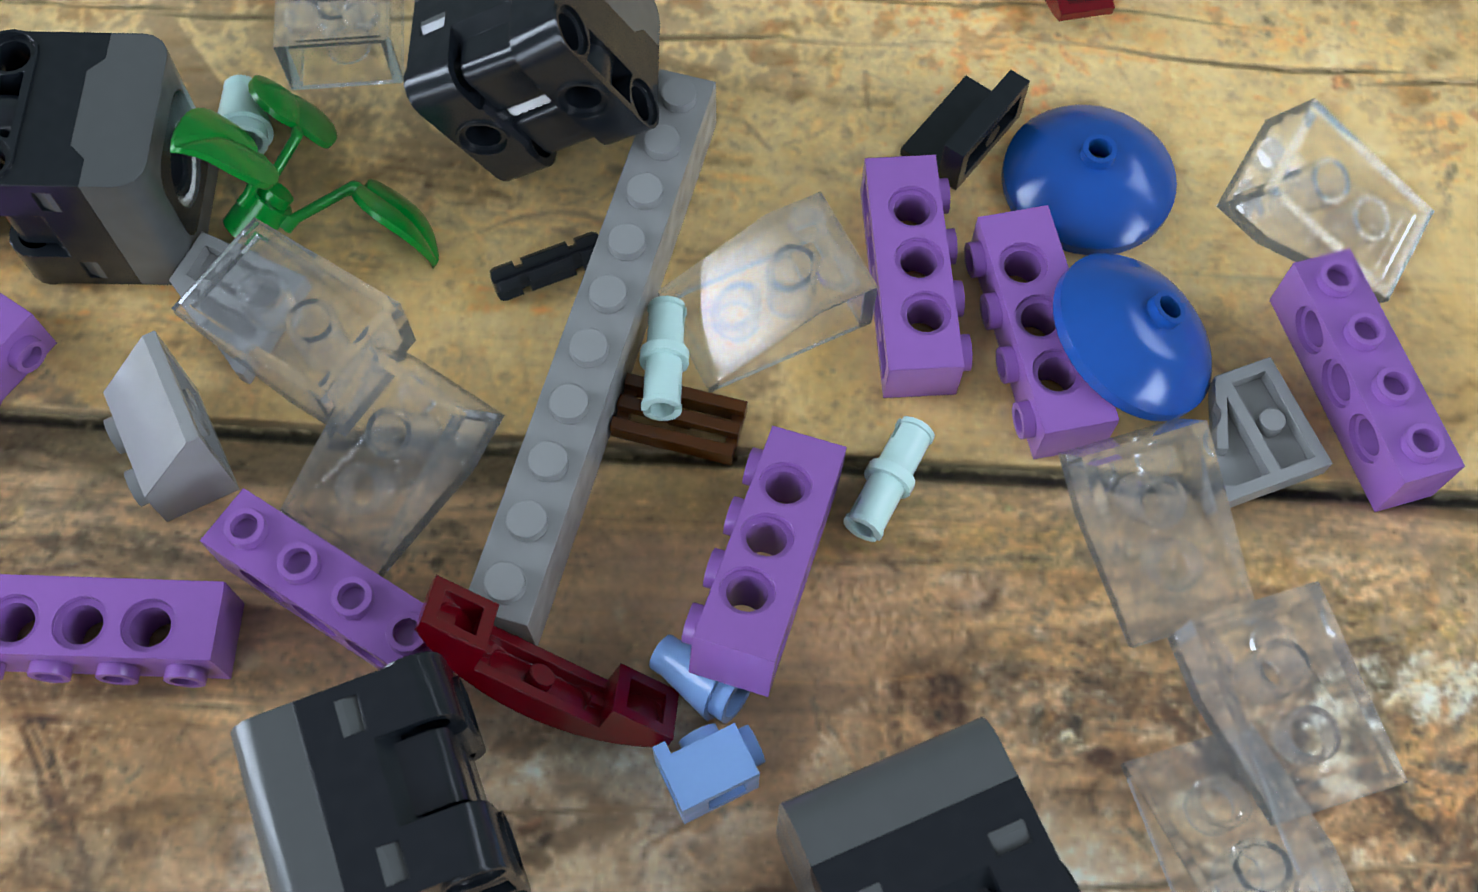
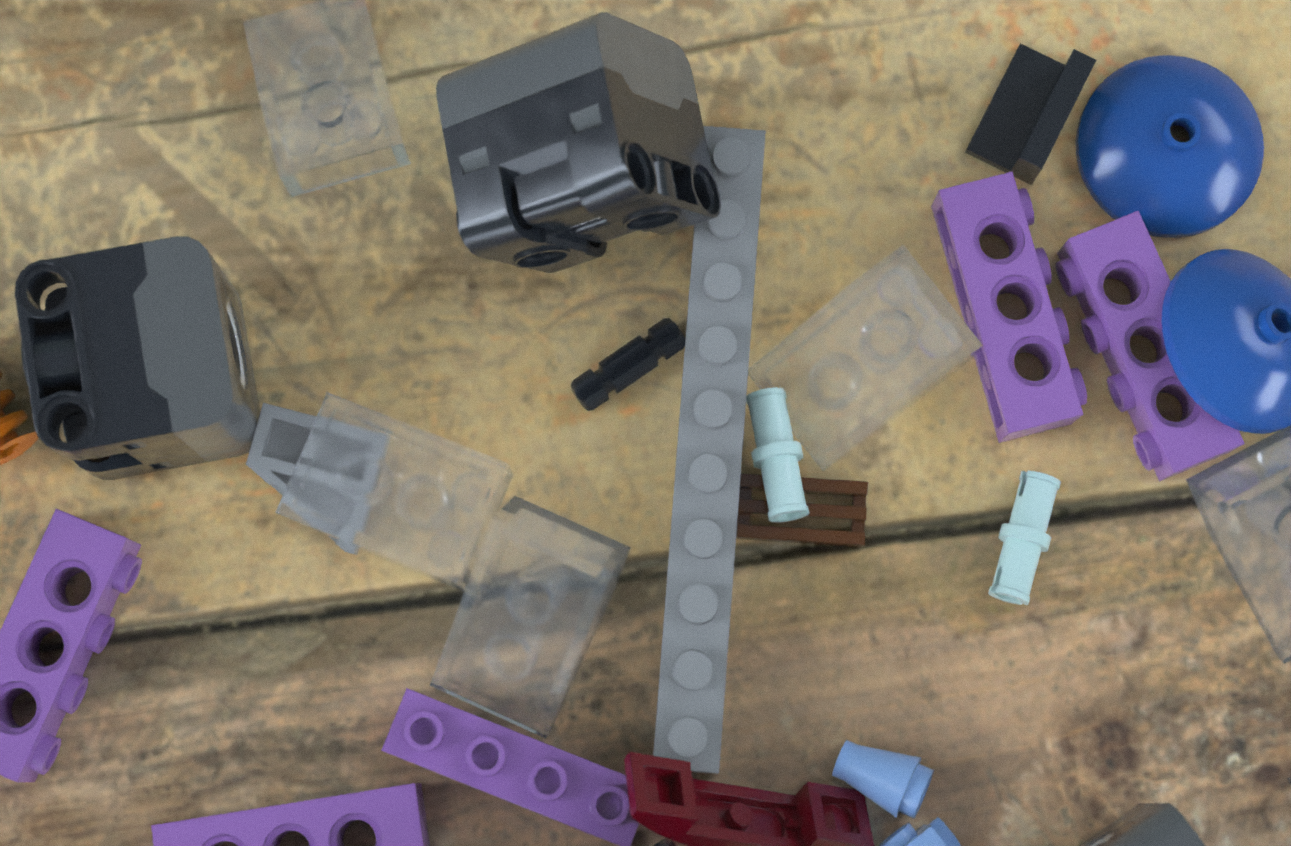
camera: 10 degrees left, 15 degrees up
(165, 433) = (301, 638): light grey slope -> none
(231, 149) = (310, 358): green plant -> none
(242, 110) = (257, 252): light aqua cone -> none
(748, 645) = (950, 559): medium lavender brick -> none

